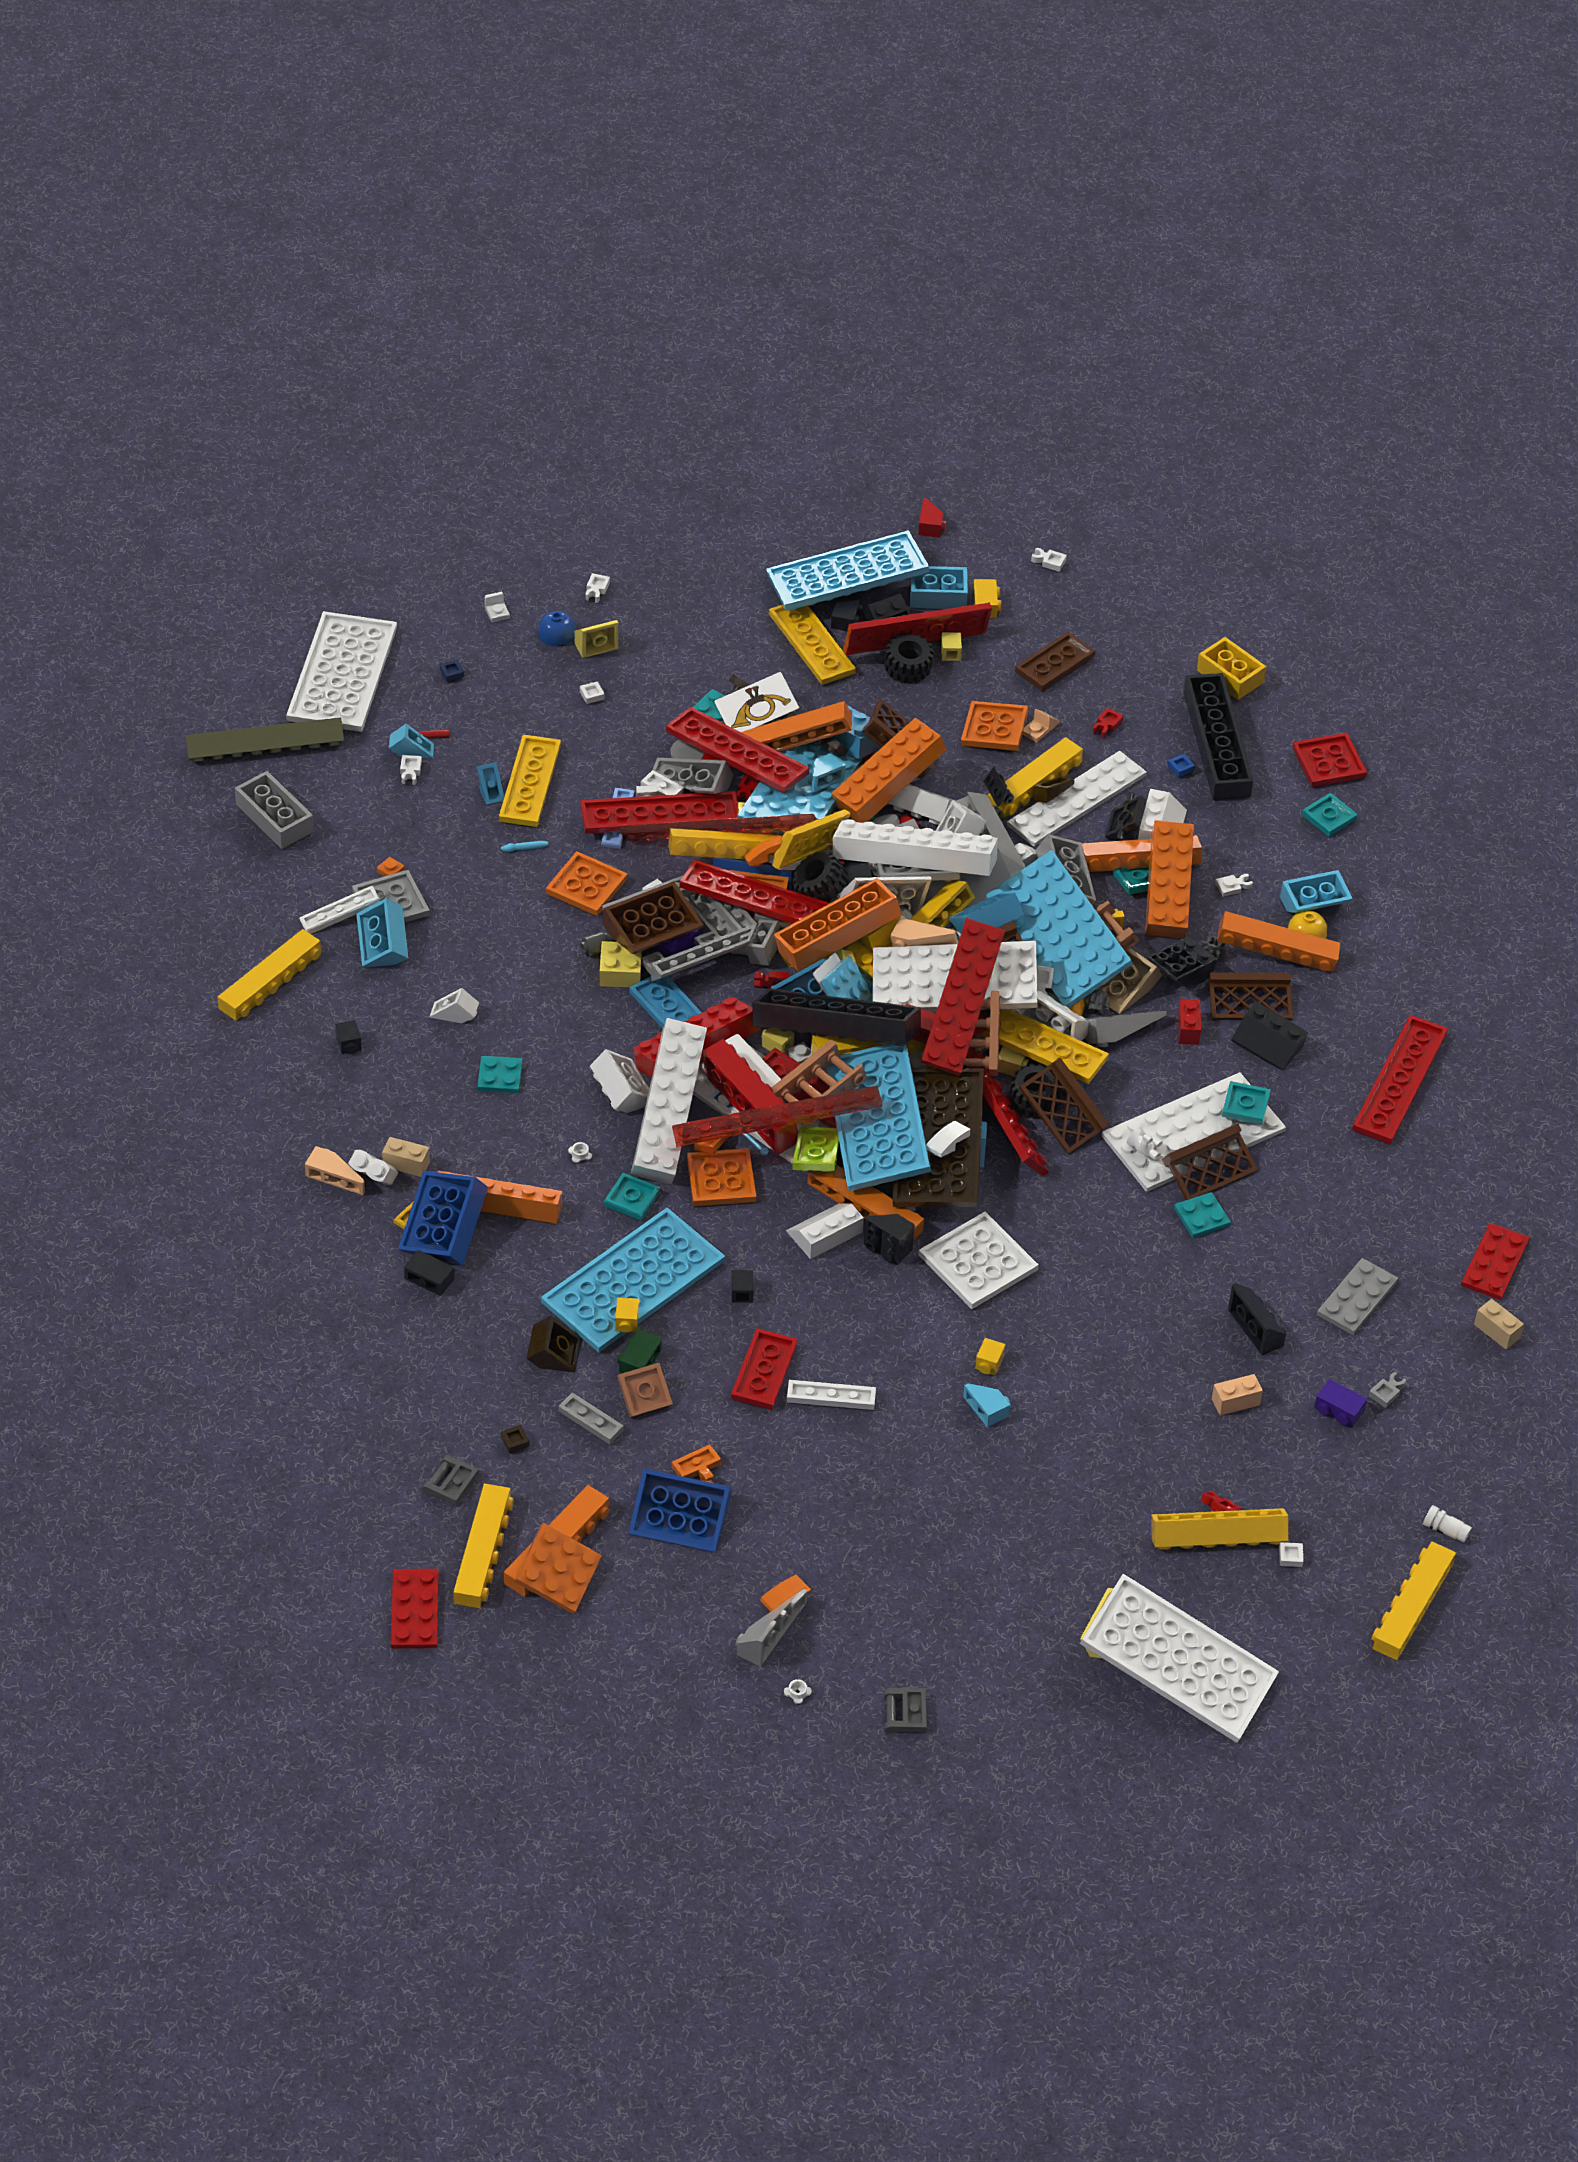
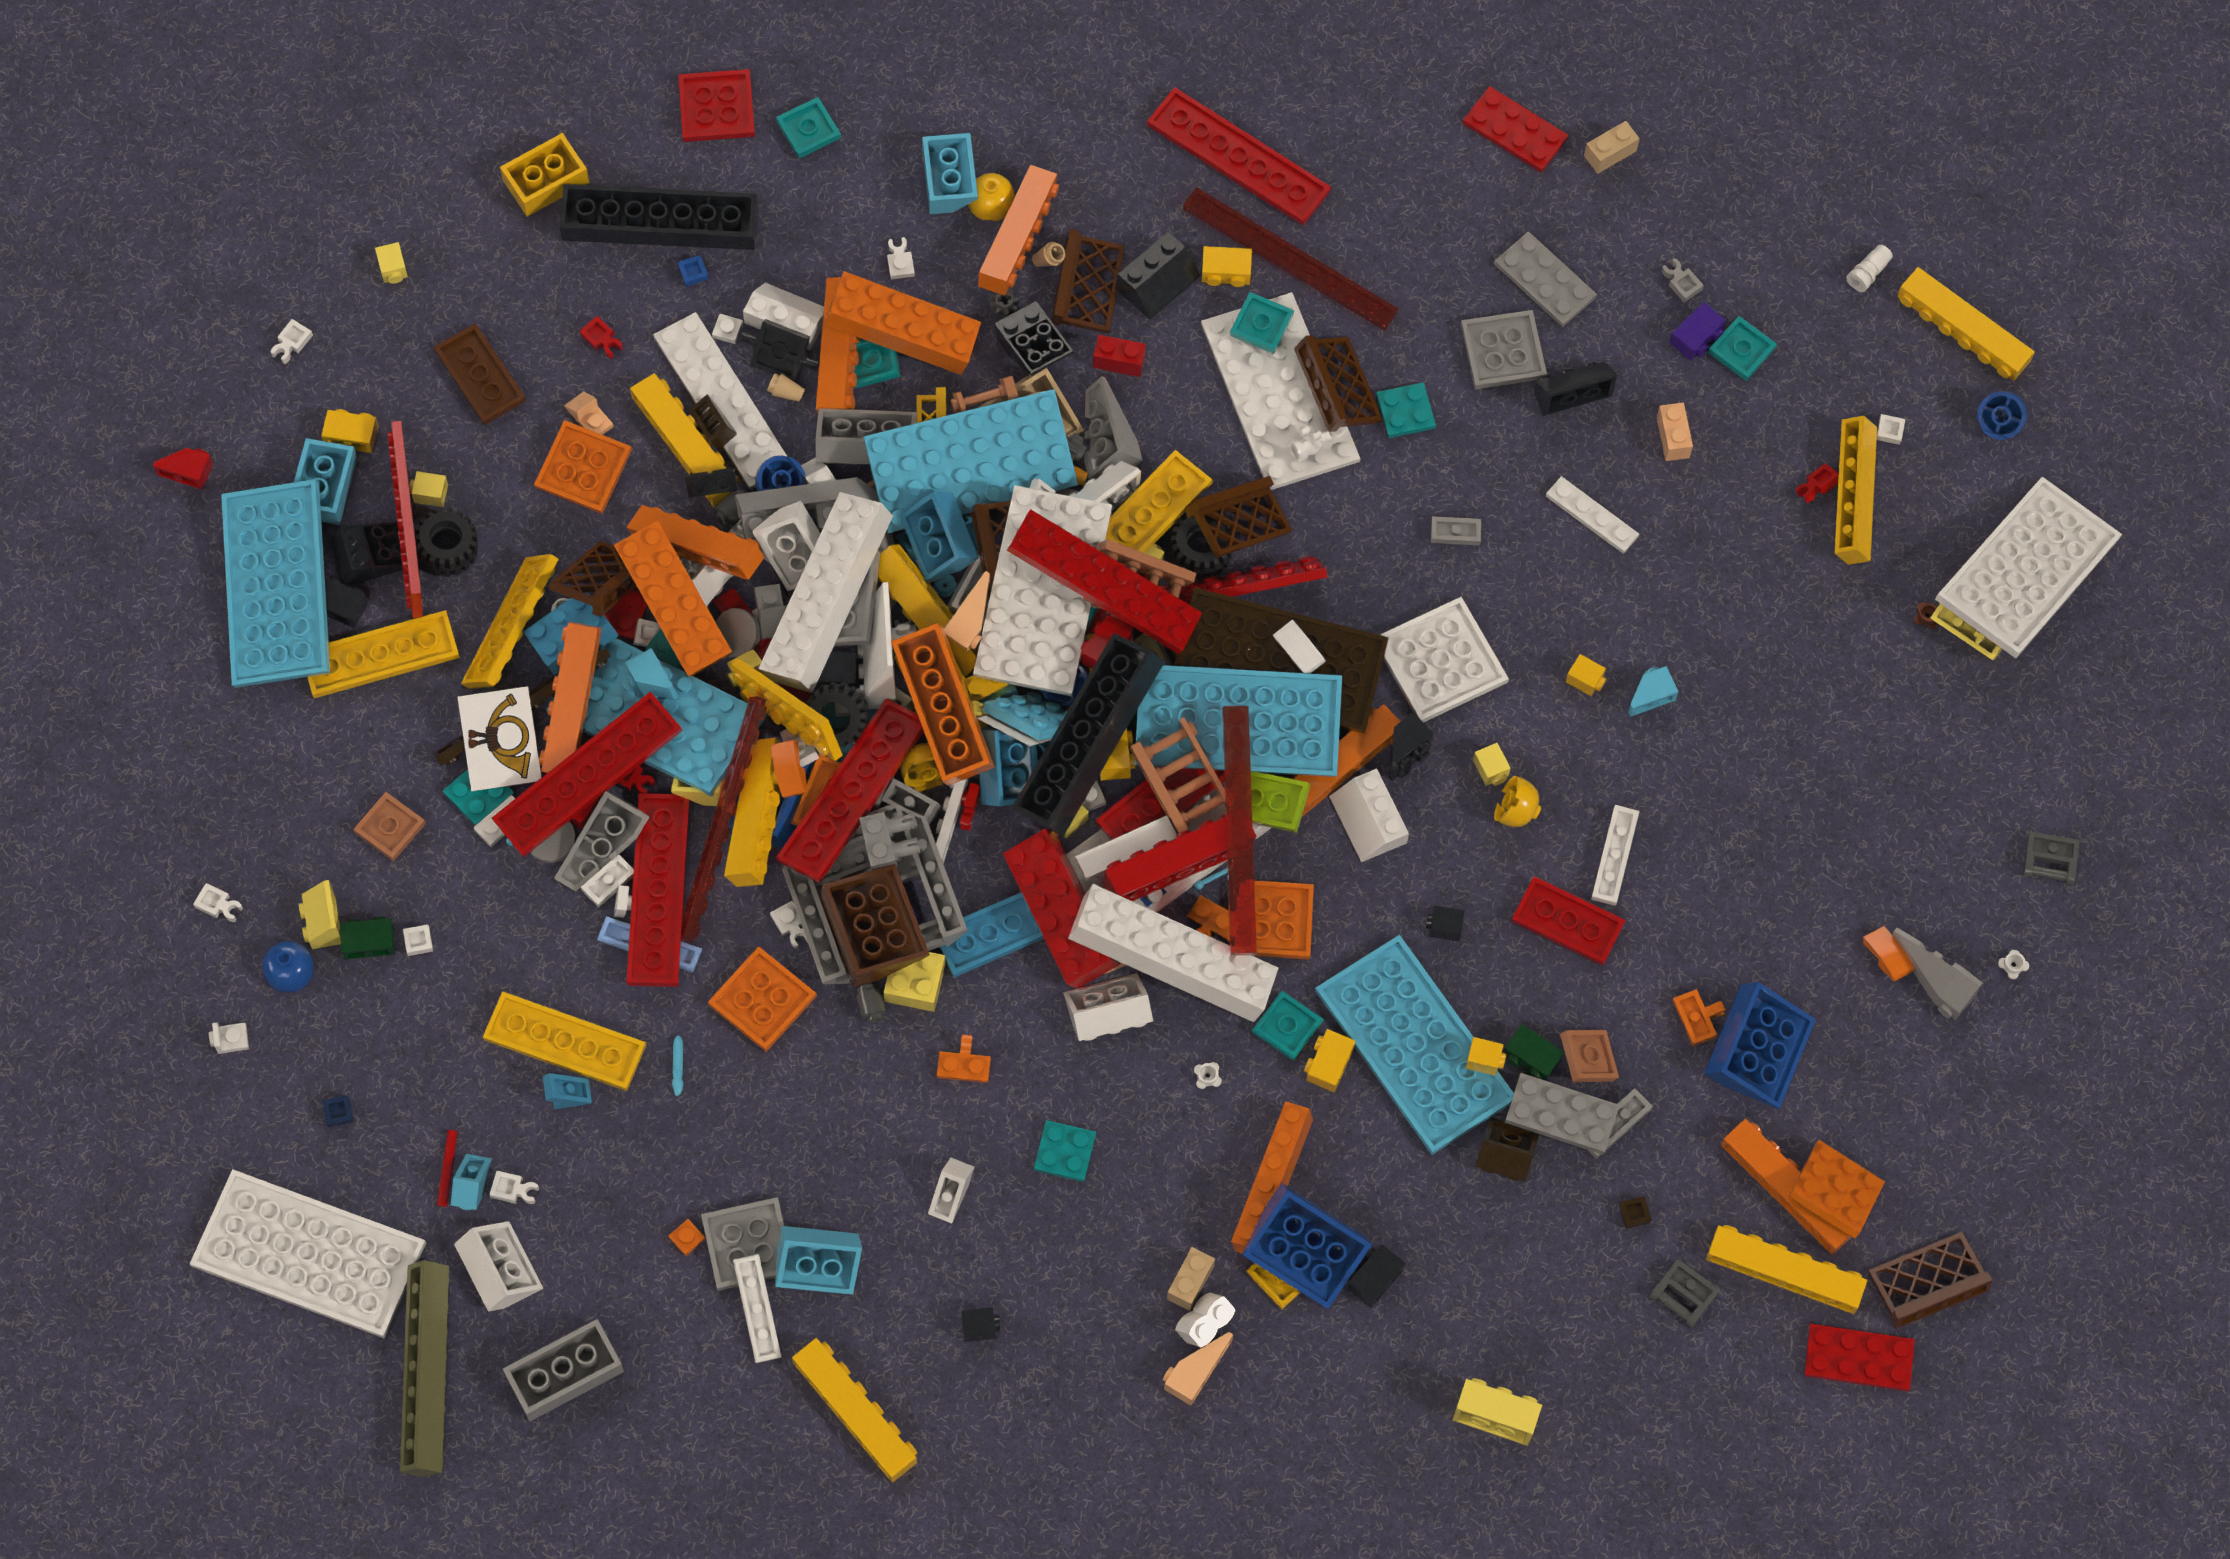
camera: 80 degrees left, 20 degrees up
(324, 1355) = (1497, 1411): none -> light yellow brick
(350, 768) = (497, 1265): none -> white slope
(475, 1657) = (1944, 1295): none -> reddish brown fence
(559, 1006) = (964, 1065): none -> orange plate
(586, 664) = (367, 938): none -> dark green brick
(589, 1376) = (1562, 1113): none -> light grey plate
(606, 1224) = (1330, 1060): none -> yellow brick
(677, 665) = (389, 826): none -> nougat plate
(720, 913) = (877, 835): none -> light grey brick
(747, 968) = (952, 807): none -> white plate
(859, 1319) = (1519, 801): none -> yellow cylinder
(862, 702) = (510, 621): none -> yellow plate
(891, 1301) = (1492, 765): none -> light yellow brick
(943, 782) = (702, 543): none -> orange brick
(1017, 826) = (779, 473): none -> blue cylinder
(1098, 828) = (785, 388): none -> tan cone
(1099, 1257) = (1455, 530): none -> light grey plate
(1130, 600) = (391, 263): none -> light yellow brick
(1139, 789) = (727, 328): none -> white plate
(1143, 1351) = (1592, 515): none -> white plate
(1264, 960) = (1050, 255): none -> tan cone
(1279, 1272) = (1503, 349): none -> light grey plate
(1294, 1080) = (1226, 266): none -> yellow brick
(1316, 1123) = (1290, 259): none -> clear red plate
(1329, 1630) = (2002, 415): none -> blue cylinder
(1335, 1439) = (1742, 348): none -> teal plate

